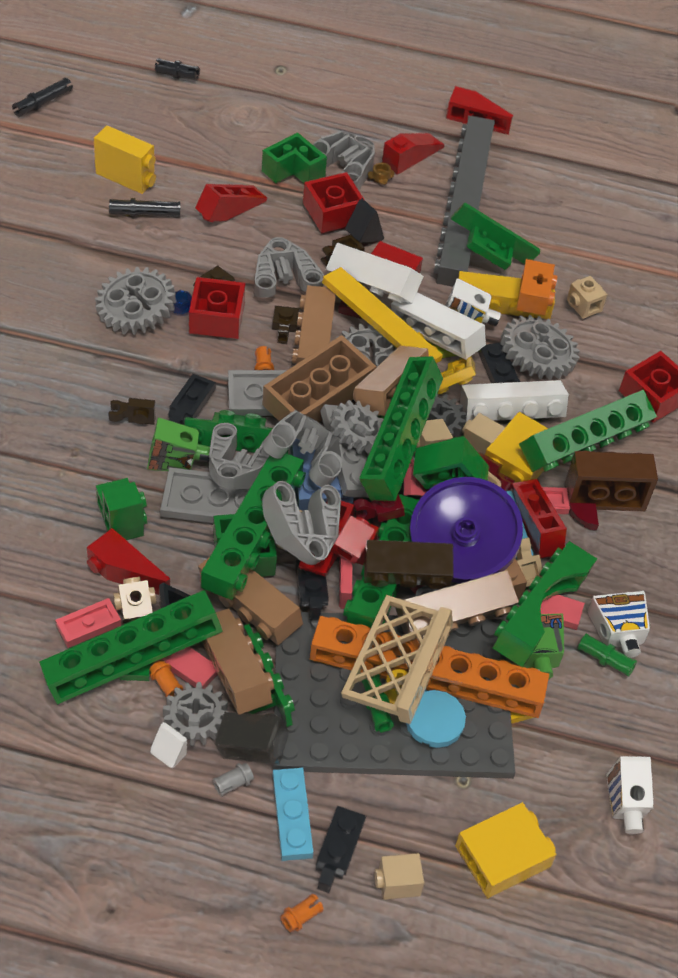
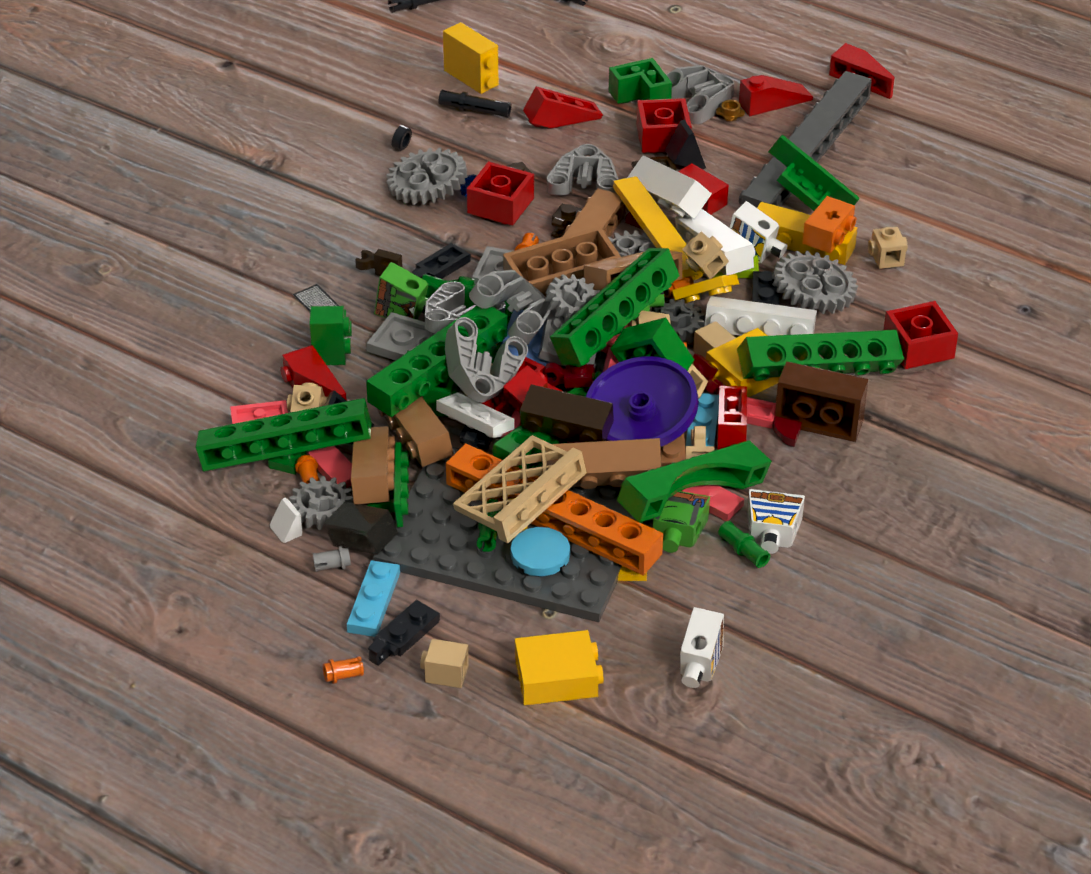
camera: 25 degrees right, 10 degrees down
(85, 467) = (314, 297): none -> sticker
(91, 260) = (401, 137): none -> black tile
(312, 577) = (475, 415): none -> white plate
(448, 346) = (705, 255): none -> tan brick

